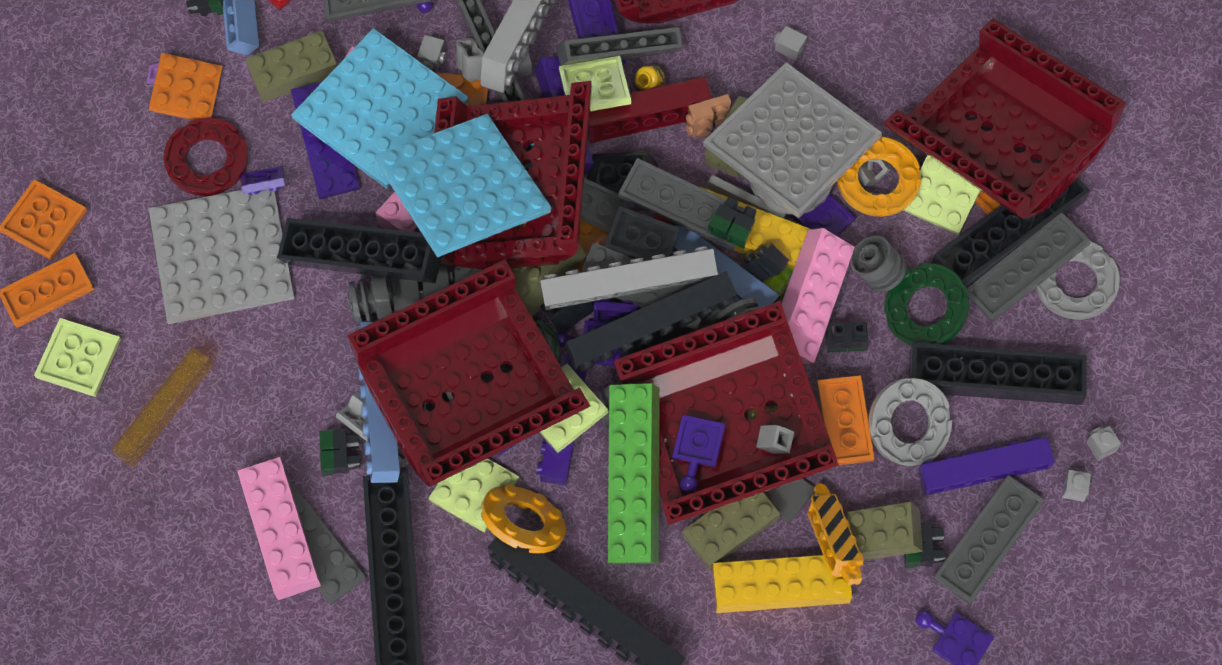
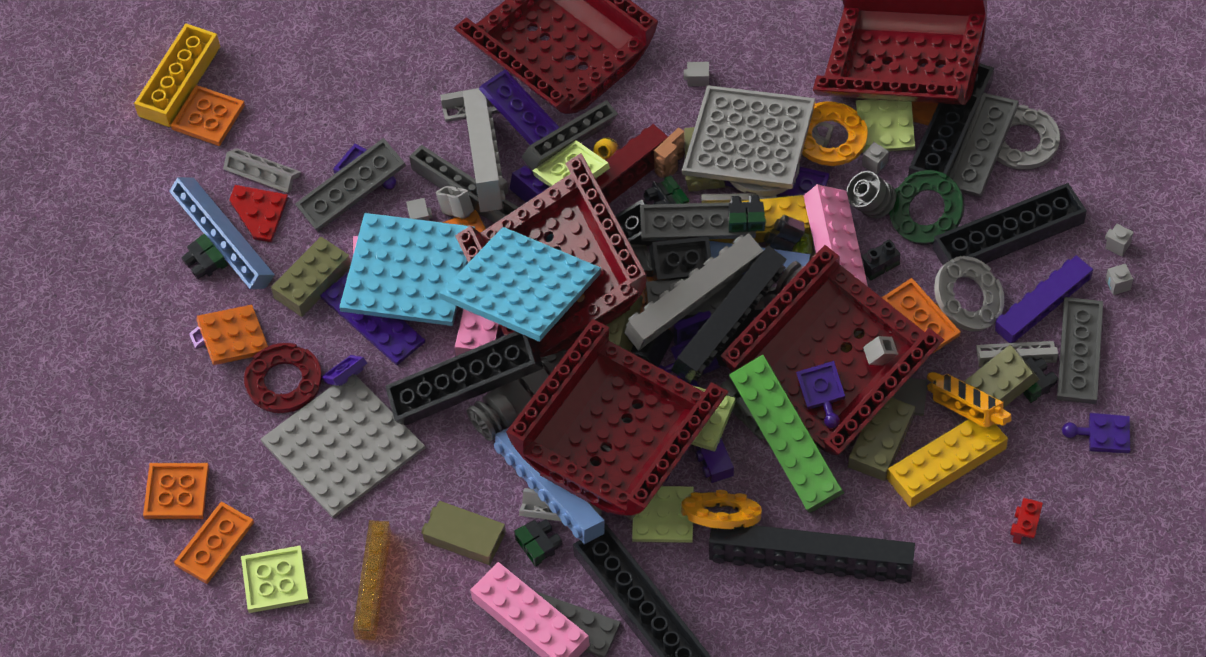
camera: 25 degrees left, 10 degrees down
(275, 405) = (463, 532): none -> olive brick
(679, 158) = (666, 192): none -> hips
(910, 225) = (875, 158): none -> light grey brick
(926, 515) = (1048, 354): none -> light grey fence

